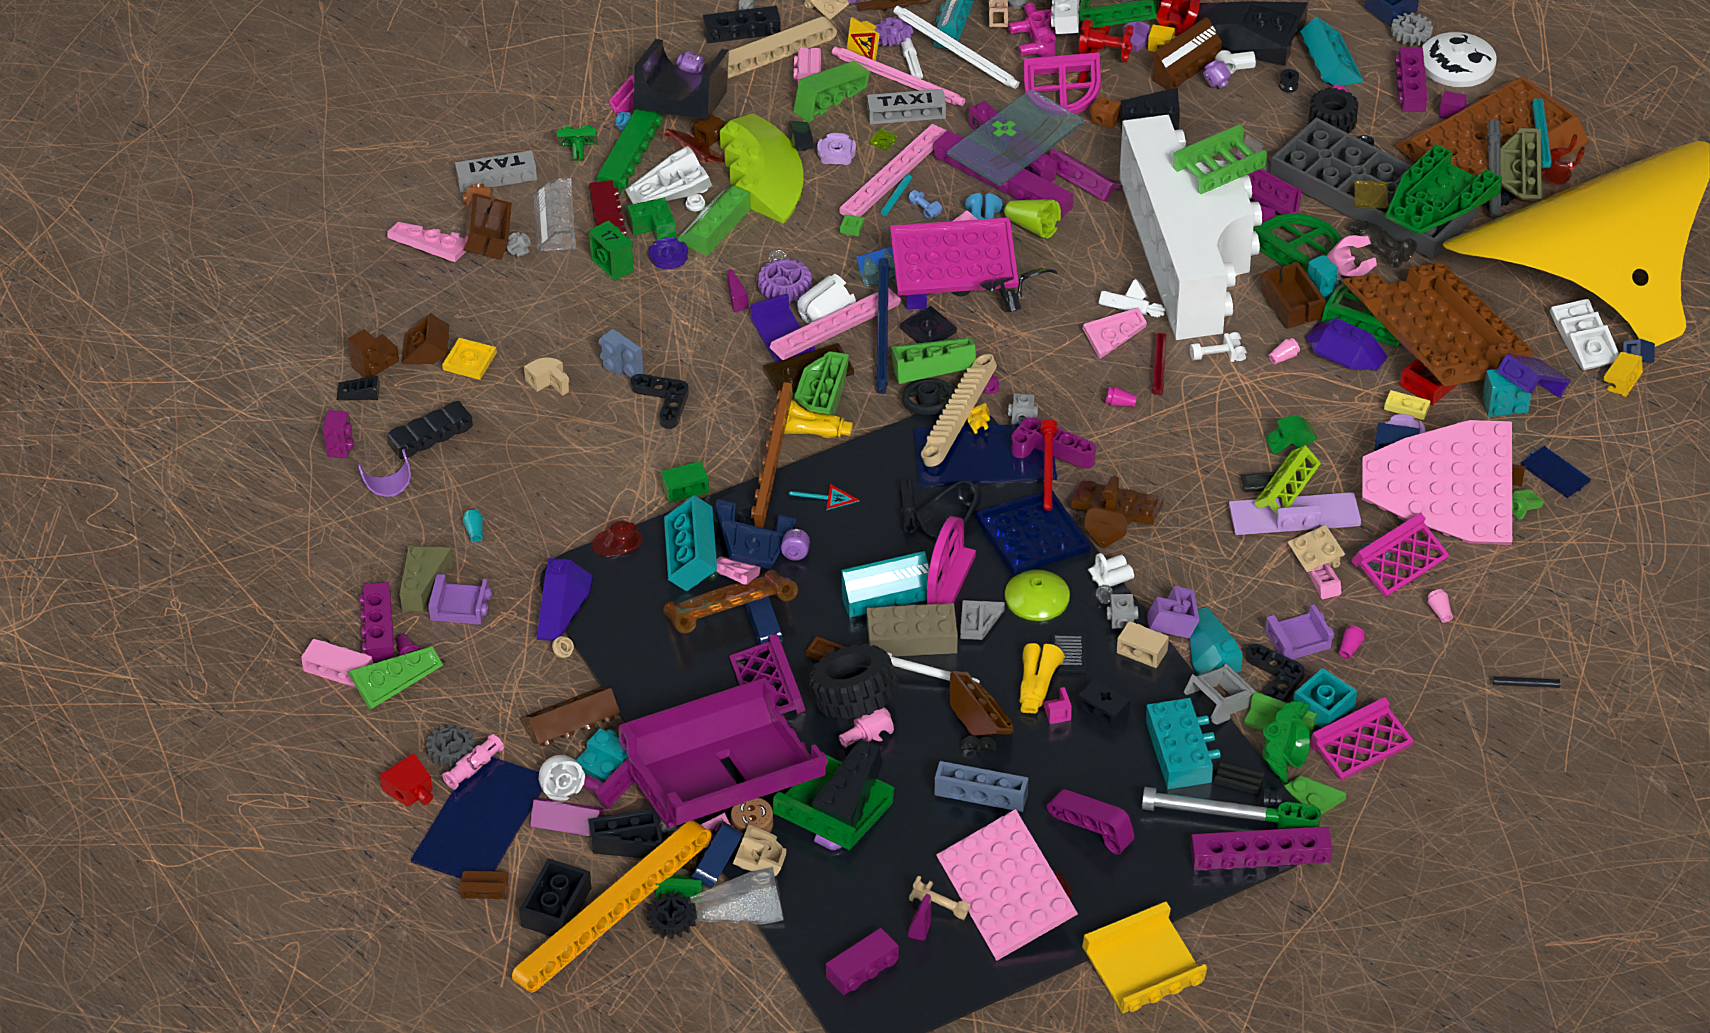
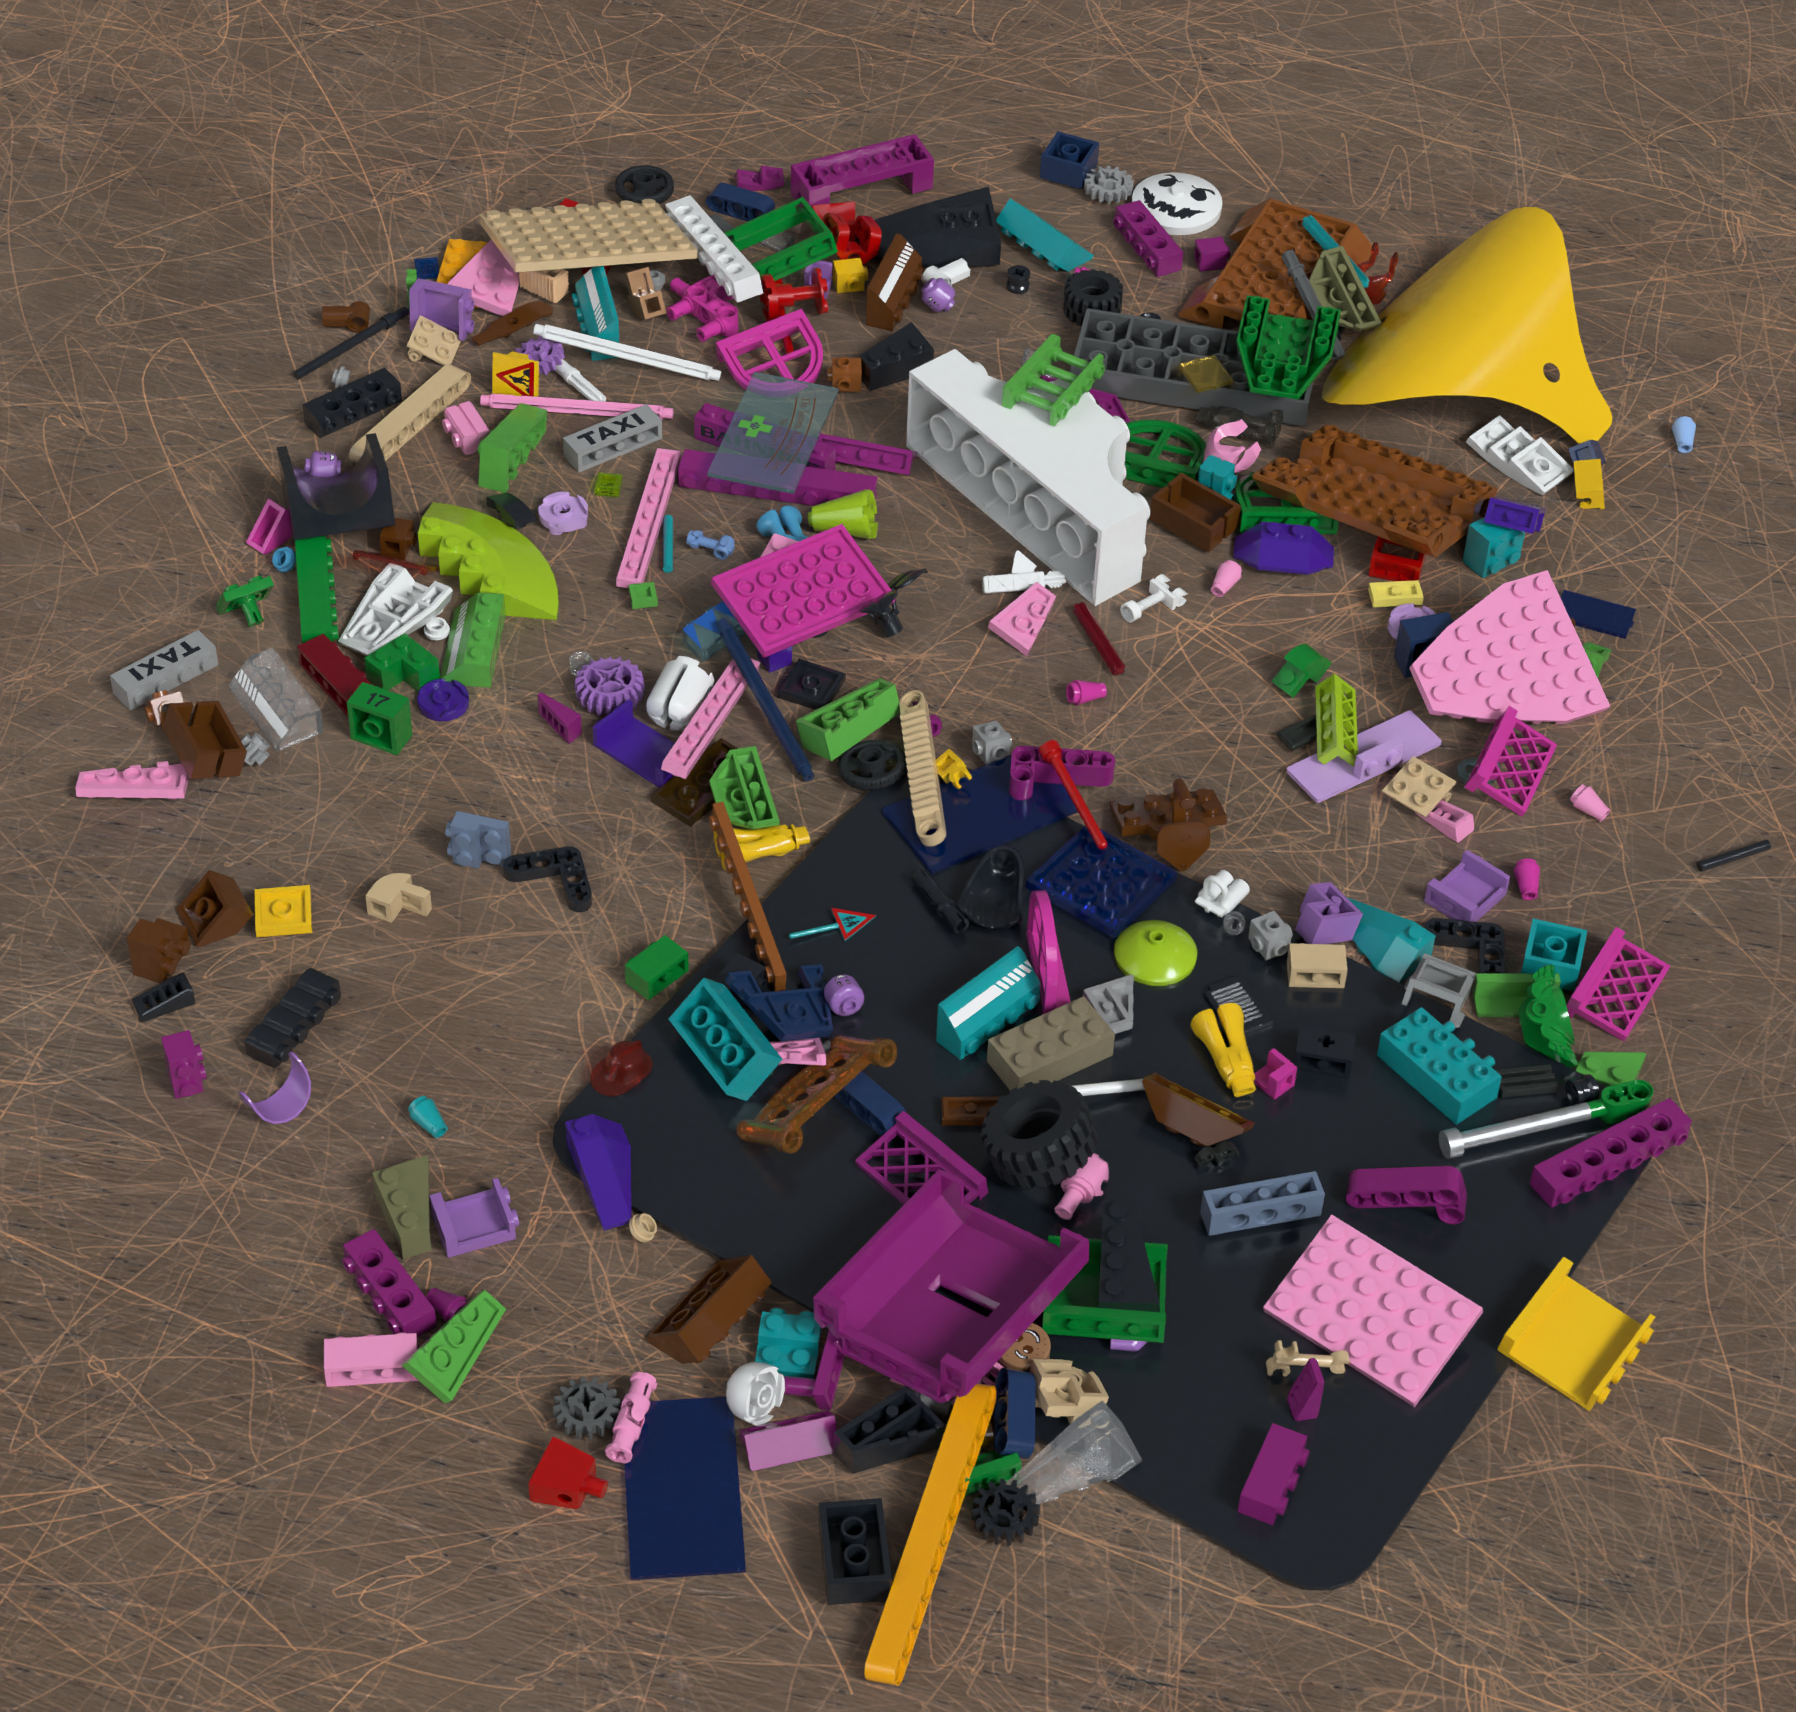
camera: 30 degrees left, 0 degrees up
(484, 885) = (748, 1570): reddish brown panel -> none

